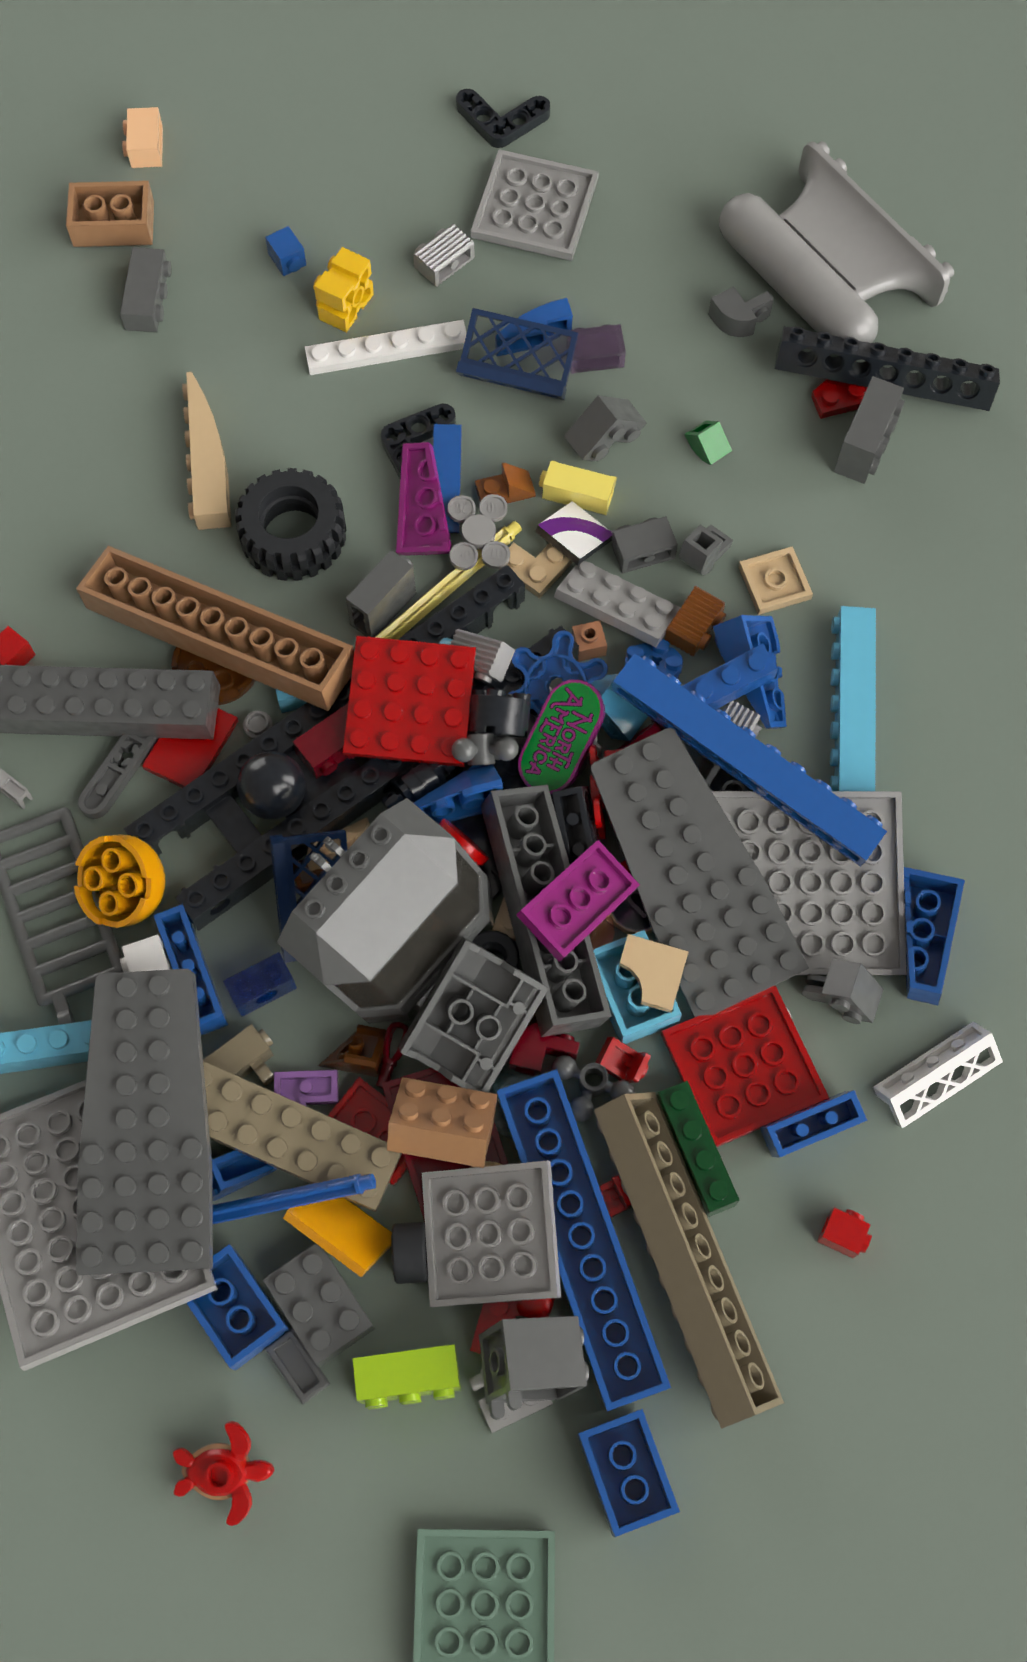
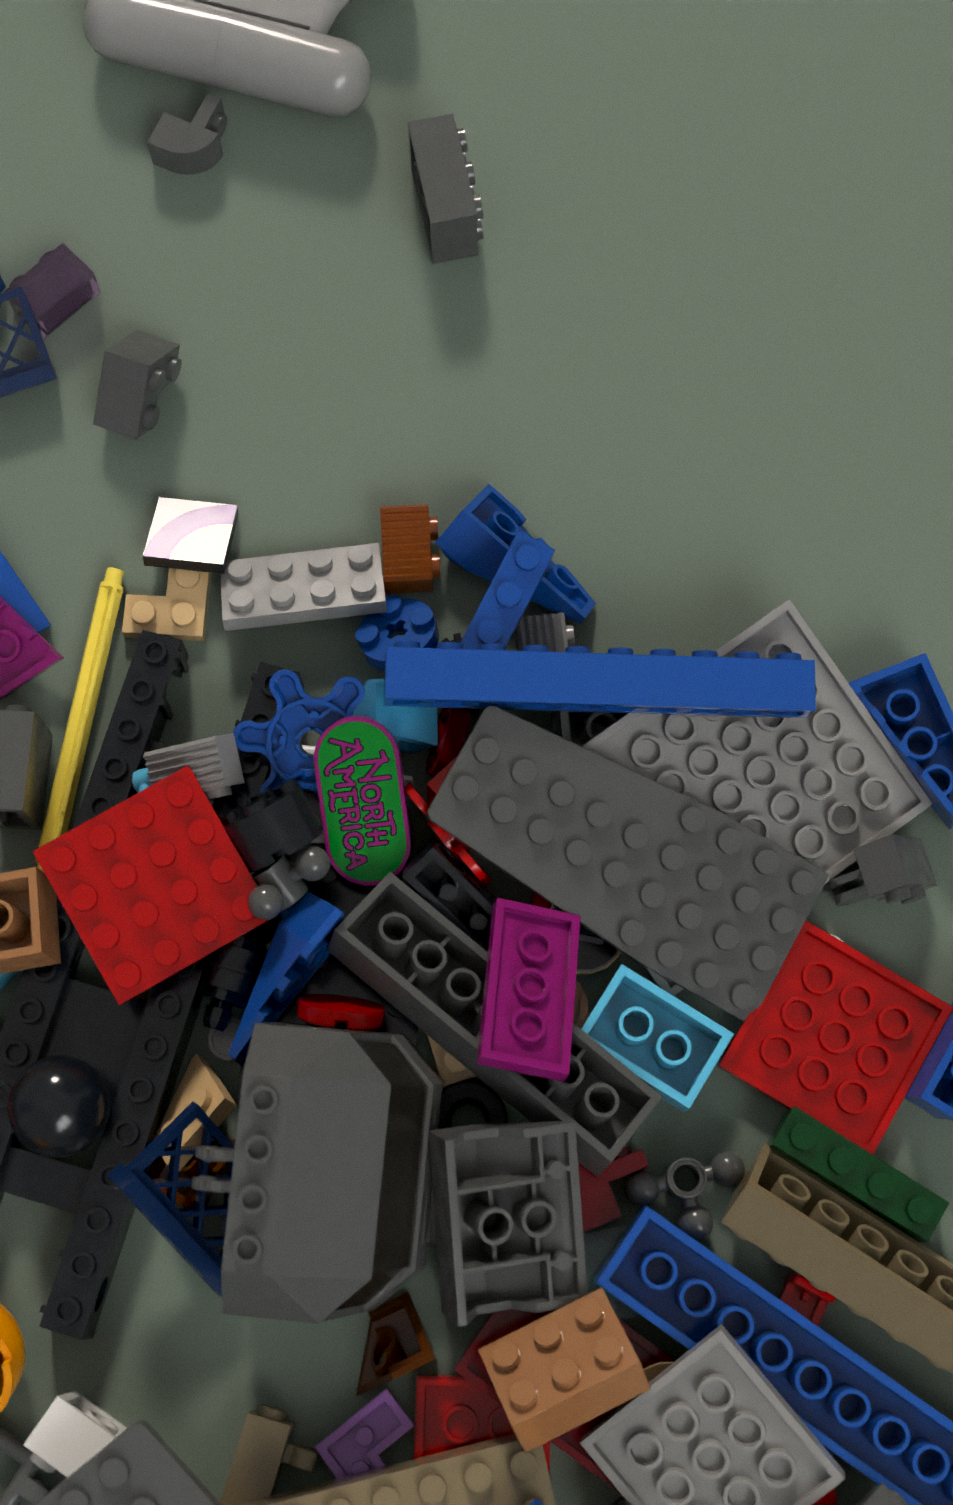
camera: 35 degrees left, 5 degrees up
(185, 953) = (119, 1394): blue brick -> none
(260, 984) = (218, 1356): clear blue brick -> none
(323, 744) = (85, 1005): dark red brick -> none
(389, 1063) = (439, 1331): dark red piece -> none
(478, 532) = (76, 611): light grey piece -> none
(512, 484) = (71, 528): dark orange slope -> none
(584, 487) = (157, 473): light yellow brick -> none
(588, 646) = (308, 664): nougat plate -> none
(623, 1061) = (702, 1131): red bracket -> none
(644, 544) = (281, 494): dark grey brick -> none
(656, 969) = (670, 1002): tan tile -> none
(704, 548) = (357, 453): dark grey brick -> none
(708, 441) = (267, 320): brick -> none
(775, 580) = (460, 437): tan tile -> none
(837, 398) = (374, 161): red wing -> none
(854, 699) = (654, 527): medium azure brick -> none
(922, 384) = (445, 86): black brick -> none

